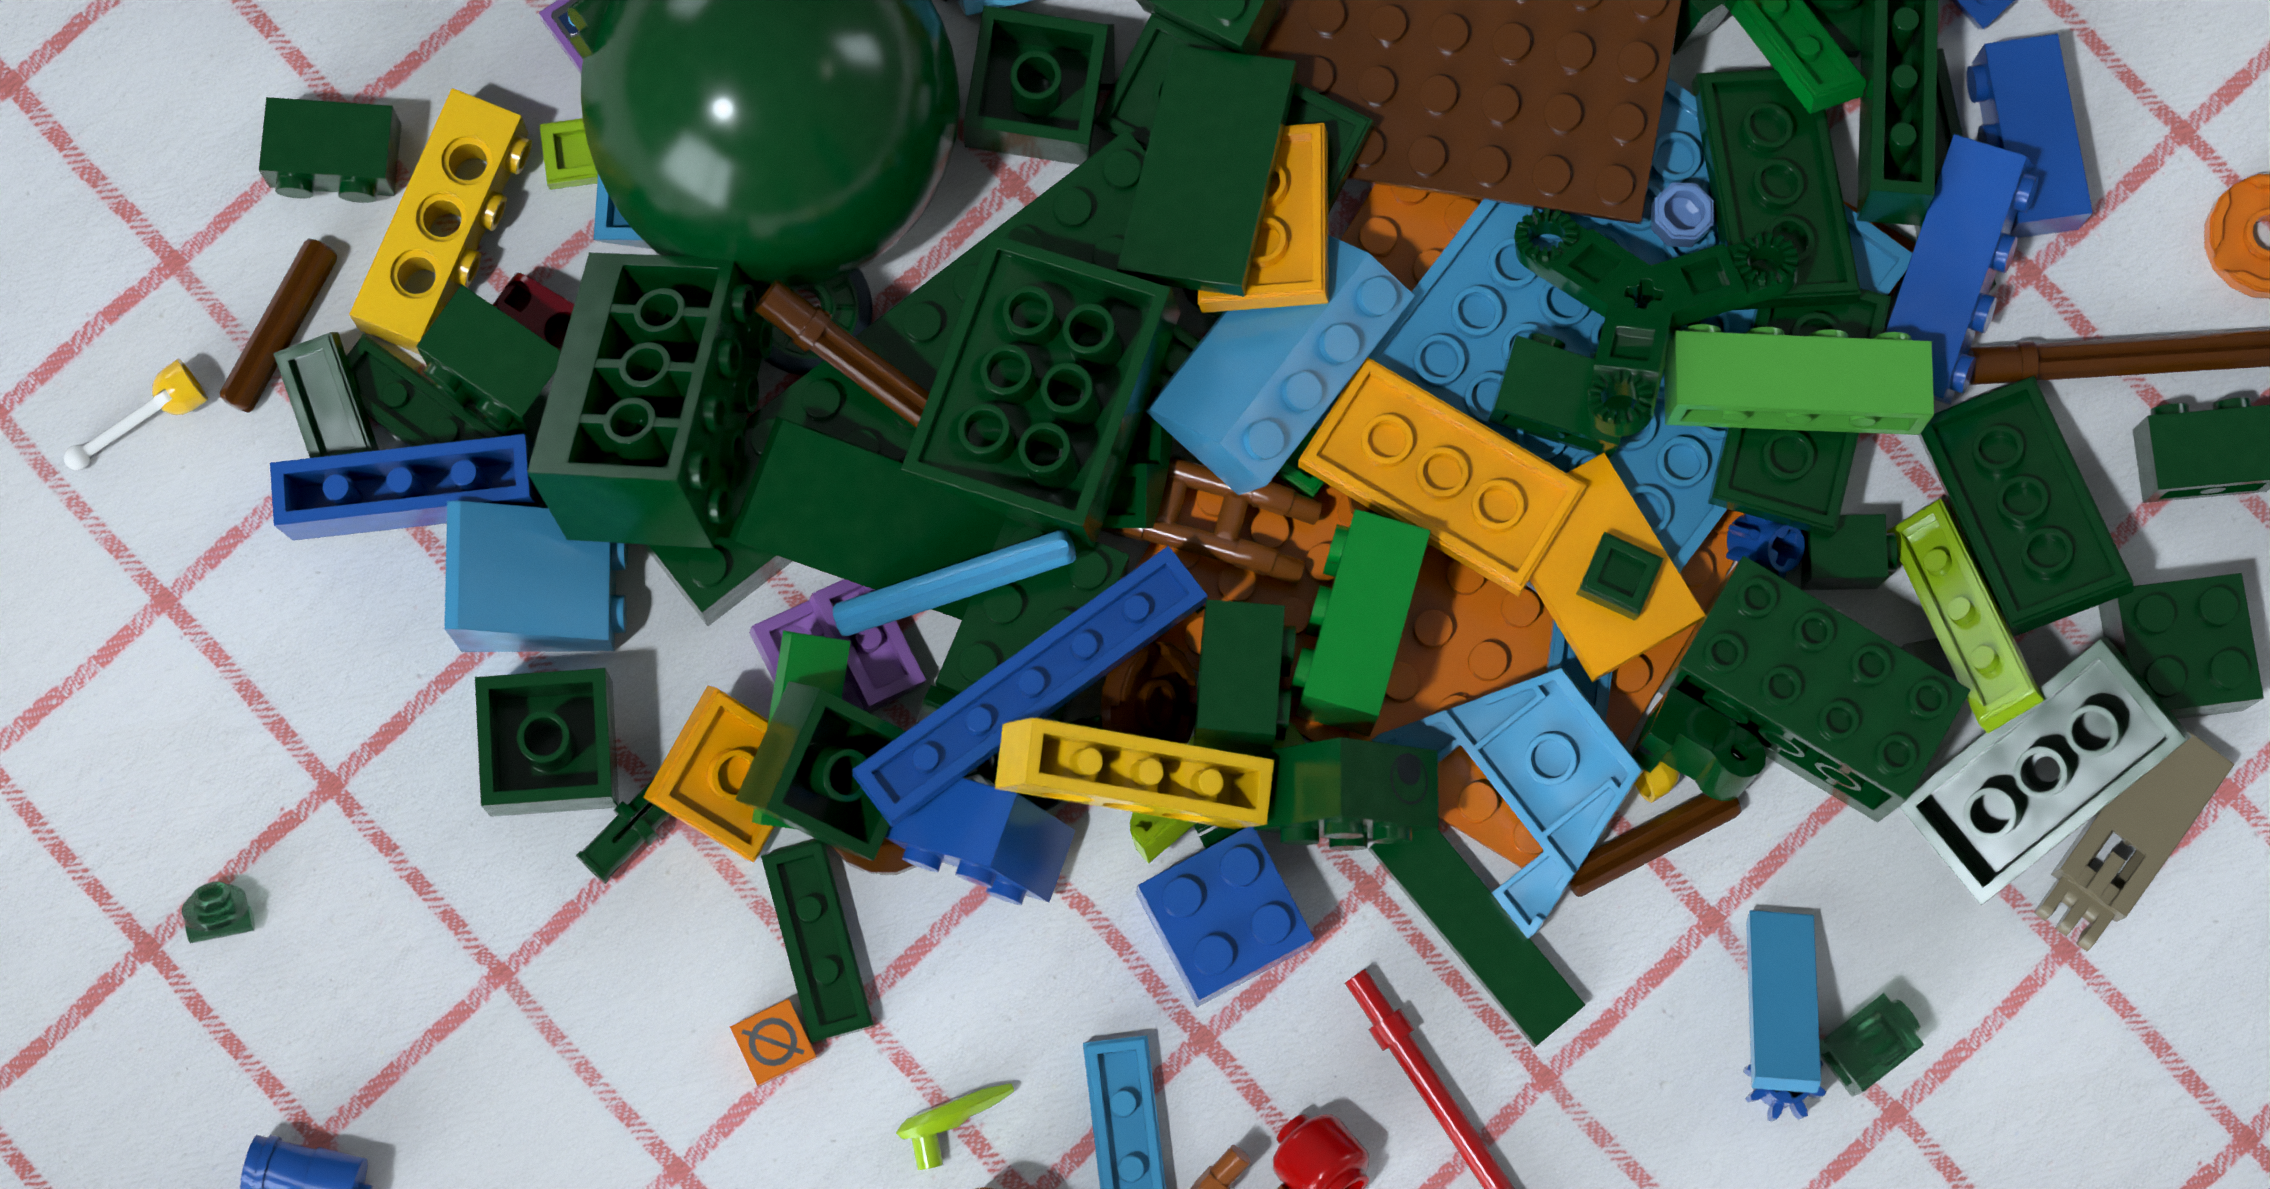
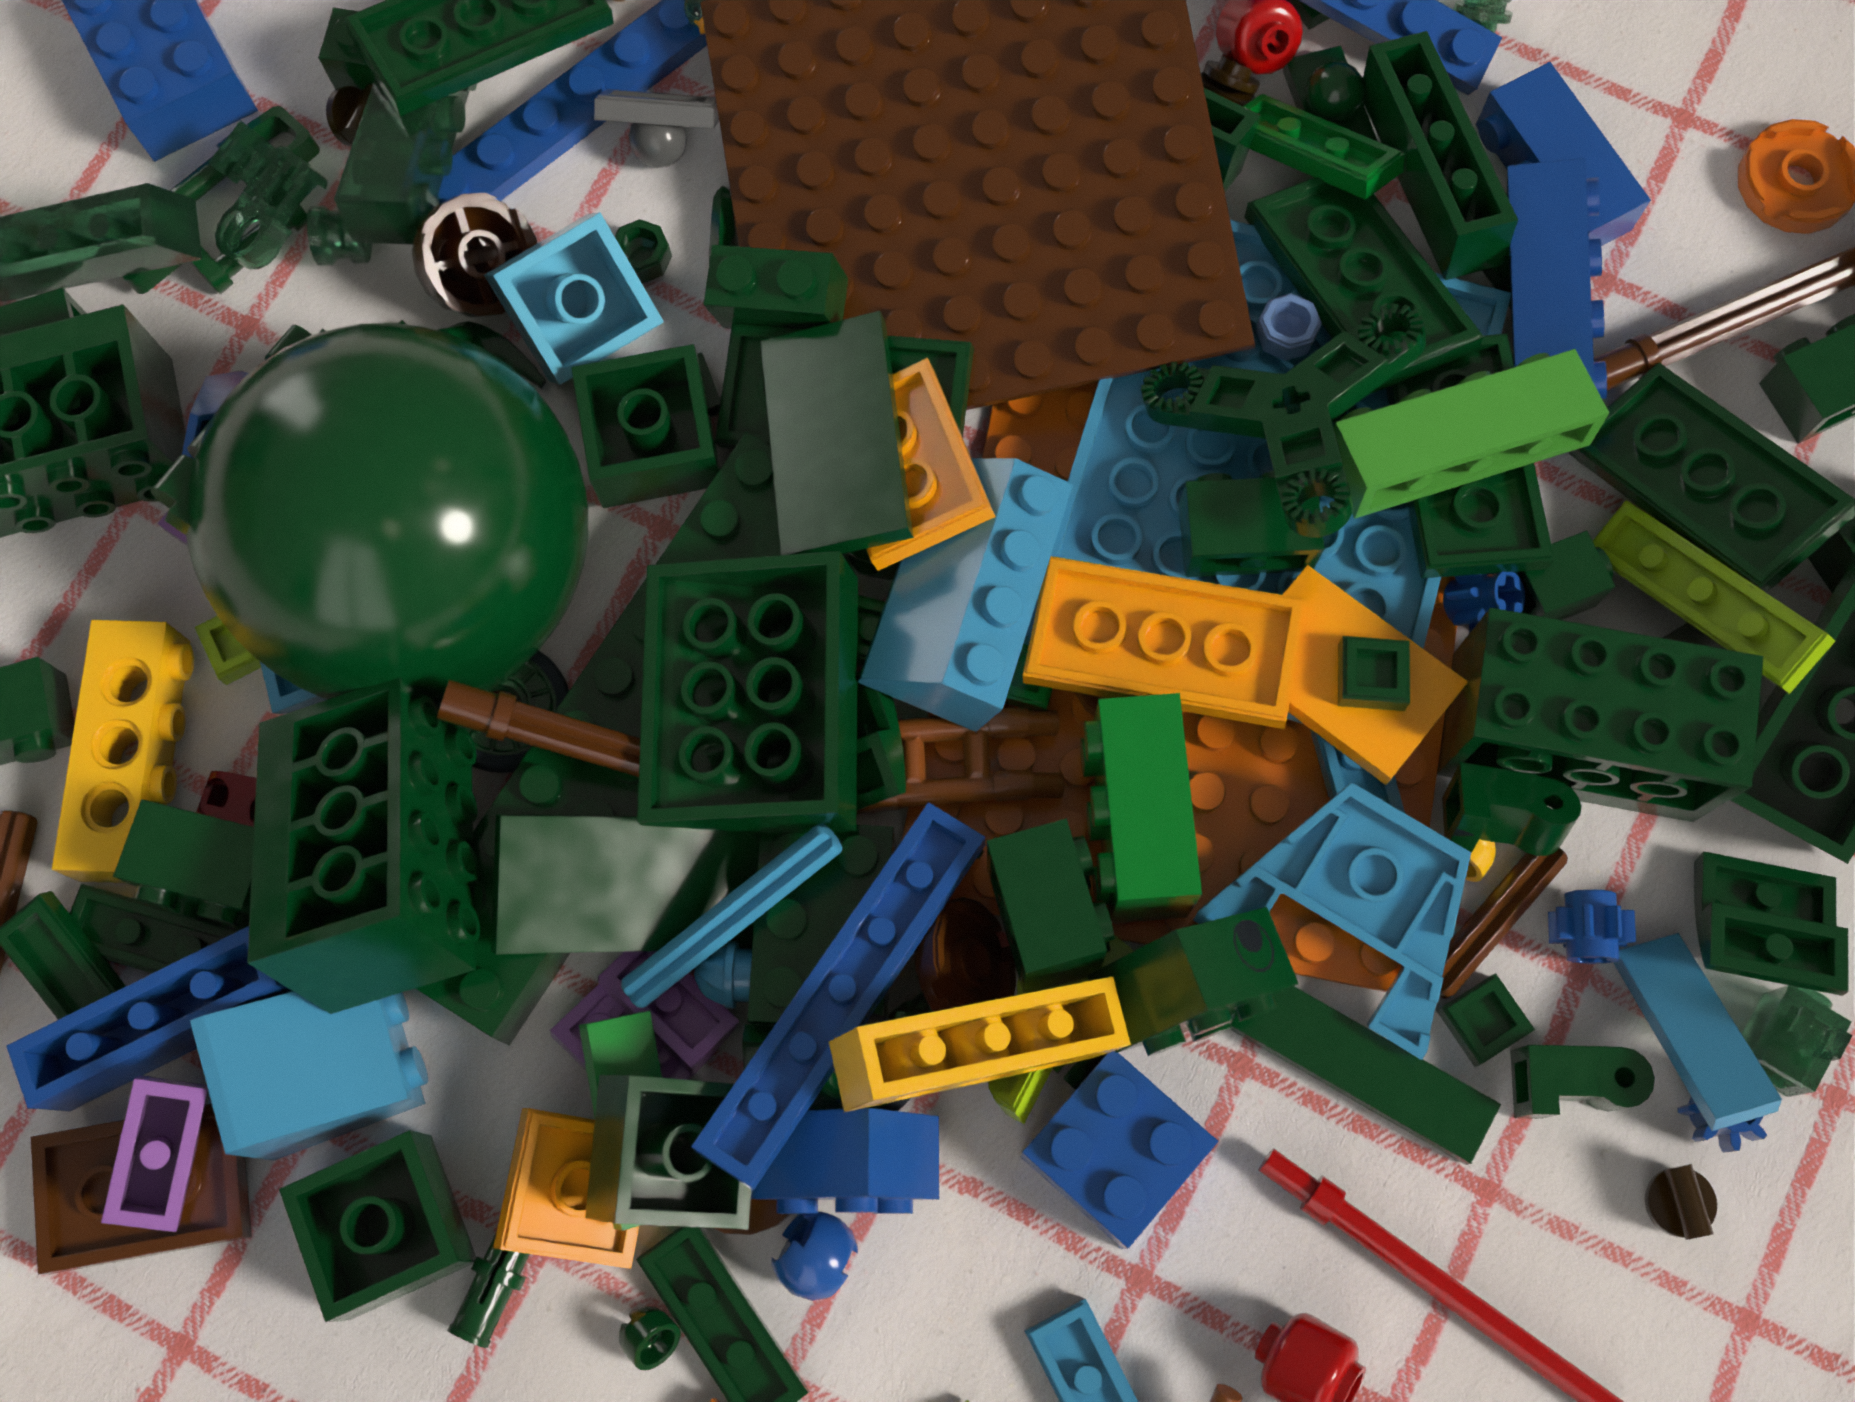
camera: 10 degrees left, 5 degrees down
(340, 631) = (72, 1187): none -> reddish brown plate
(378, 605) = (155, 1153): none -> medium lavender brick
(756, 938) = (648, 1337): none -> dark green hinge
(921, 909) = (814, 1255): none -> blue piece
(929, 634) = (726, 975): none -> dark azure plate
(1605, 928) = (1485, 1020): none -> dark green tile
(1683, 1011) = (1595, 1074): none -> dark green leg
(1711, 1147) = (1681, 1202): none -> dark brown plate
(1733, 879) = (1591, 926): none -> blue gear
(1896, 934) = (1770, 923): none -> dark green slope

